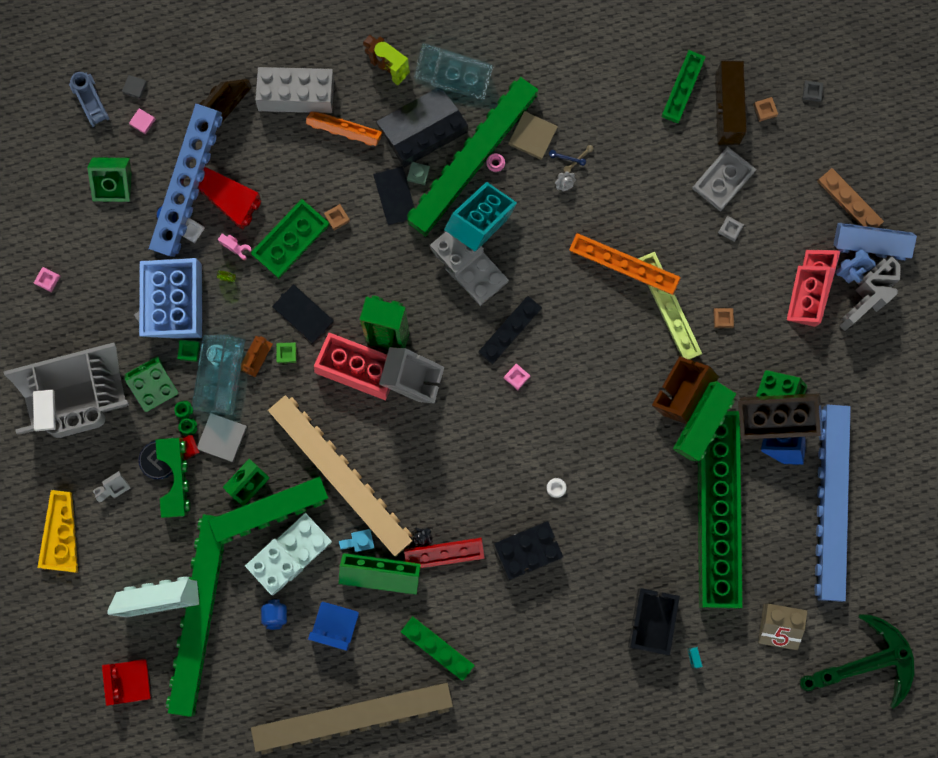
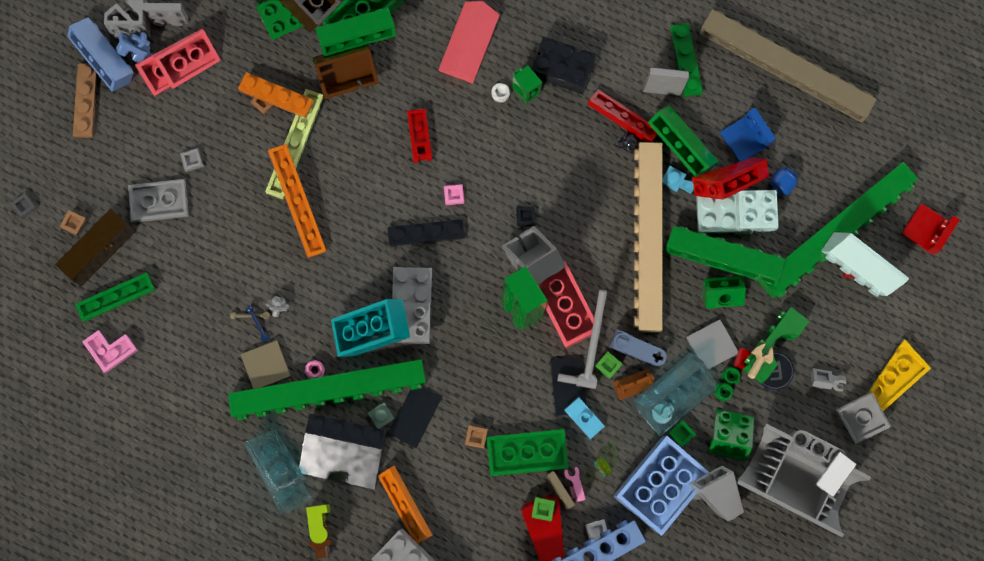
camera: 140 degrees left, 0 degrees up
(60, 482) = (863, 417): none -> light grey tile
(123, 326) = (720, 492): none -> light grey slope
(172, 448) = (760, 360): none -> tan bar
(241, 203) = (543, 509): none -> bright green plate
(241, 229) = (559, 490): none -> dark tan tile
(270, 299) = (584, 417): none -> medium azure plate
(275, 382) = (636, 348): none -> sand blue piece
(293, 327) = (588, 379): none -> light grey bar
(314, 574) = (730, 179): none -> red slope
(434, 605) = (666, 81): none -> light grey tile
(448, 409) = (526, 216): none -> black tile
(541, 506) = (526, 84): none -> green brick
(584, 397) = (419, 135): none -> red plate
(617, 504) = (469, 41): none -> coral slope
(650, 44) = (109, 355): none -> bright pink plate
(718, 327) = (276, 95): none -> orange plate

